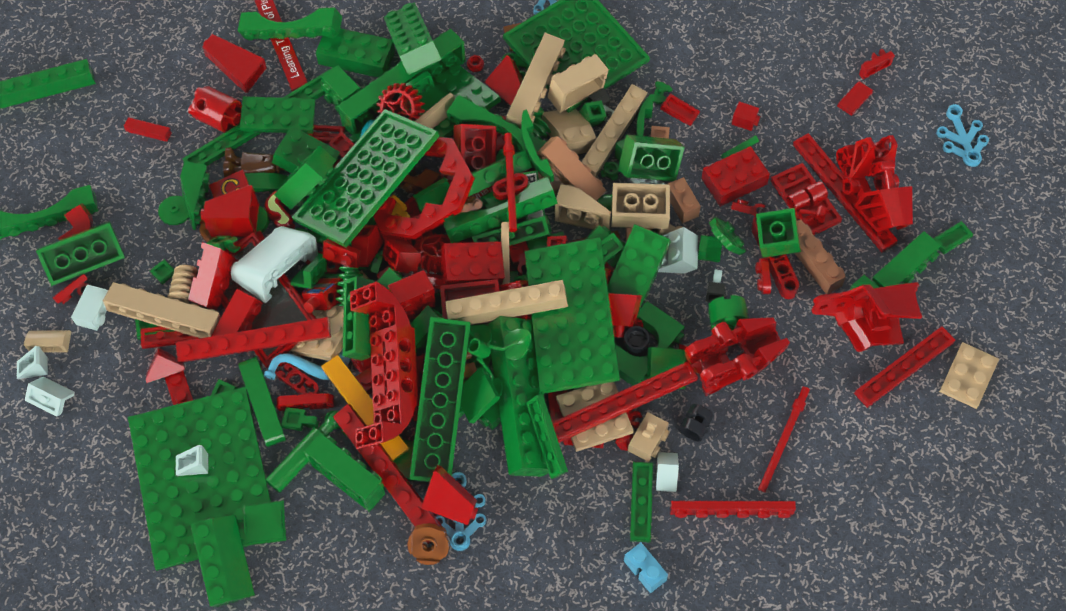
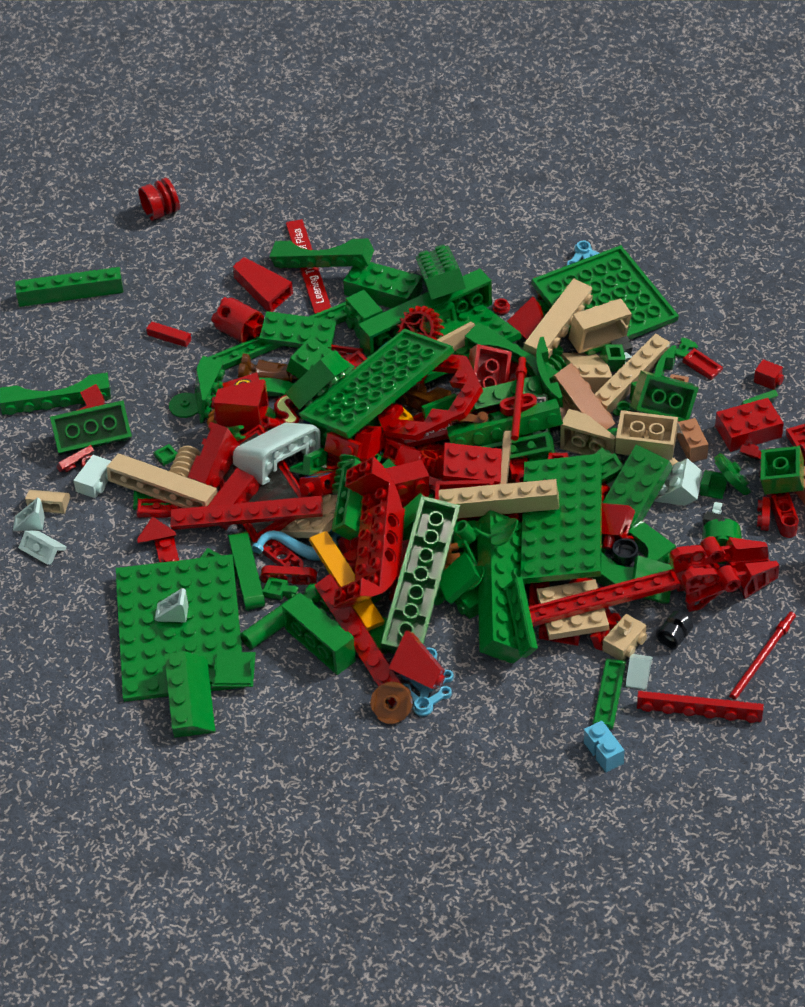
camera: 10 degrees right, 15 degrees down
(264, 228) = (270, 423): none -> red pin

